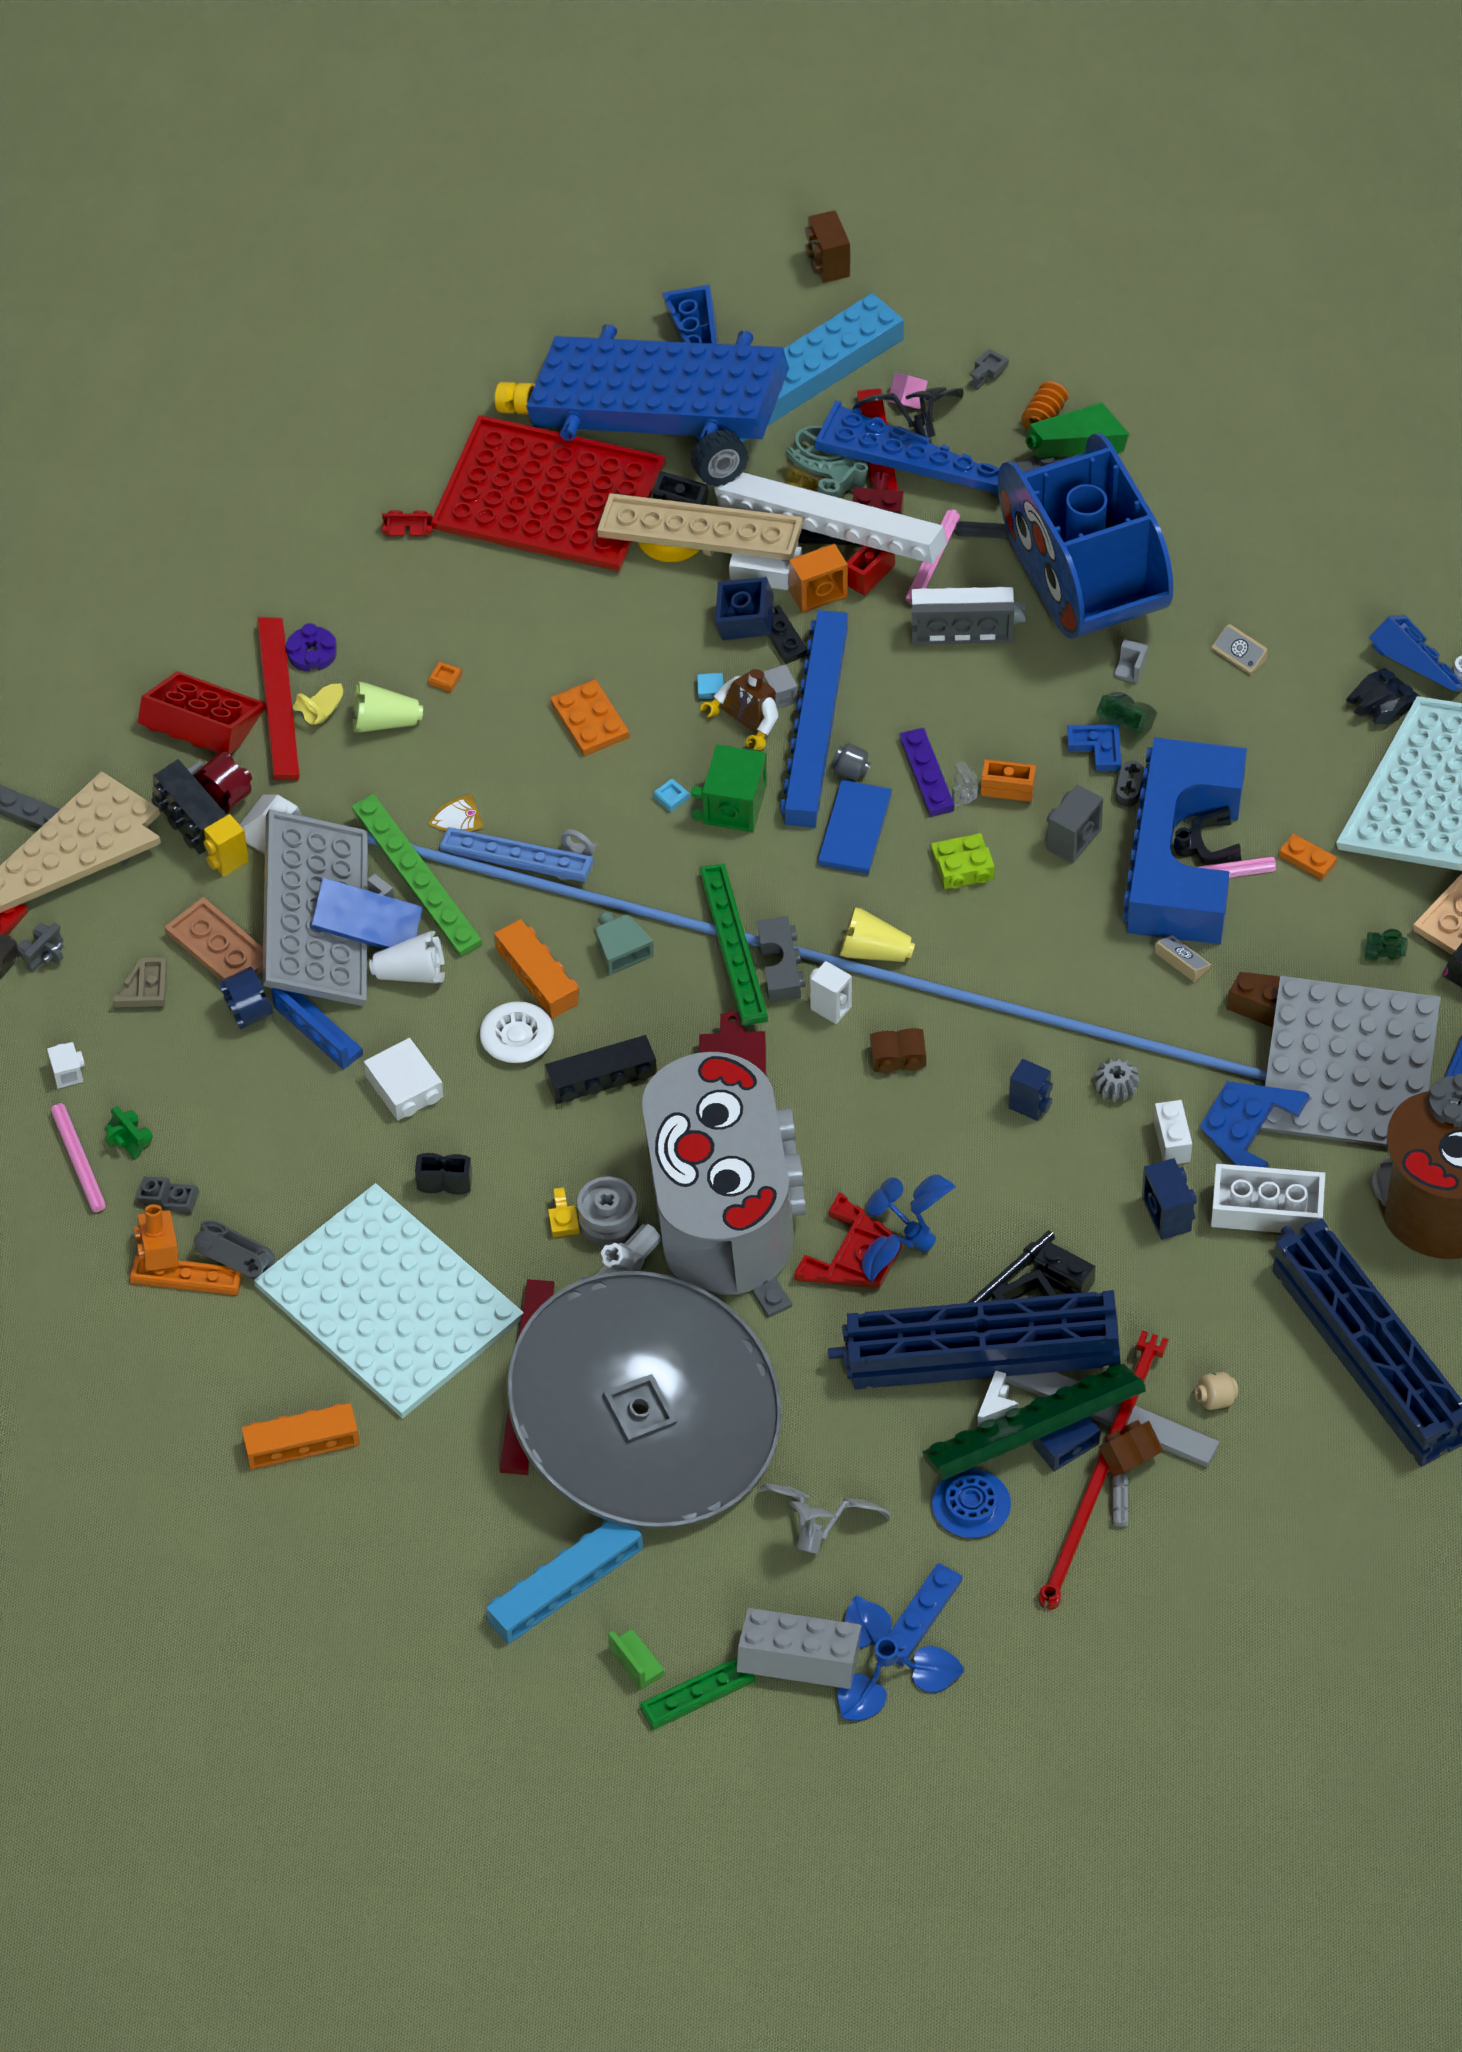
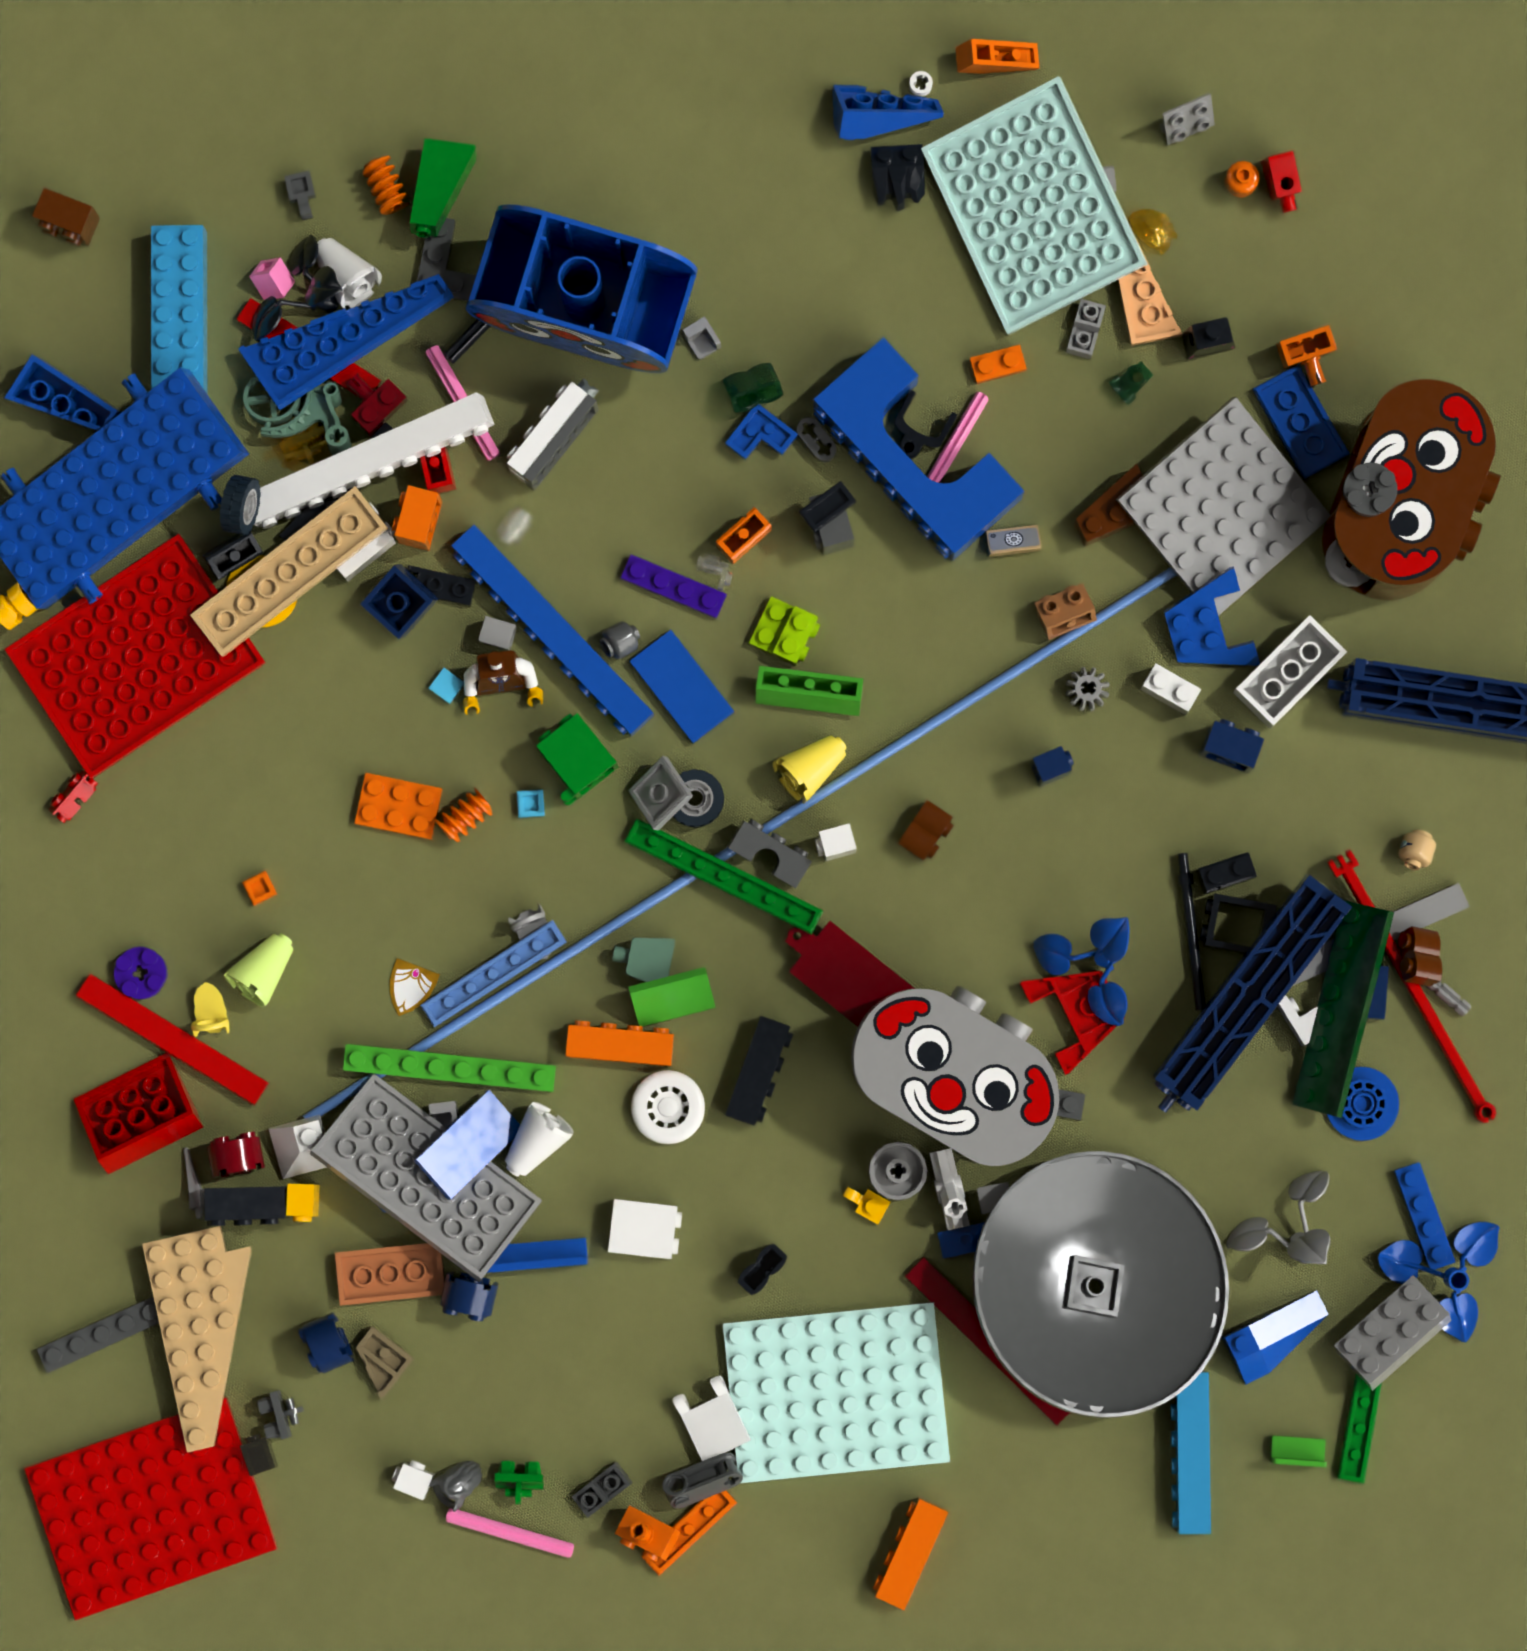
camera: 50 degrees left, 30 degrees up
(90, 1092) = (457, 1483): none -> dark grey piece
(126, 932) = (327, 1343): none -> dark blue brick
(288, 1229) = (715, 1424): none -> white flag
(606, 970) = (672, 997): none -> bright green tile
(621, 756) = (464, 816): none -> orange piece
(709, 1567) = (1268, 1340): none -> blue wedge
(758, 857) = (660, 793): none -> light grey tile
(774, 901) = (712, 799): none -> black wheel
(872, 644) = (514, 526): none -> clear brick
(931, 899) = (809, 690): none -> bright green brick
(955, 426) = (352, 272): none -> white cone
(1081, 797) = (827, 507): none -> black tile
(1162, 1021) = (1065, 611): none -> medium nougat brick
(1240, 649) = (759, 243): slope -> none
(1397, 892) = (1085, 329): none -> light grey slope

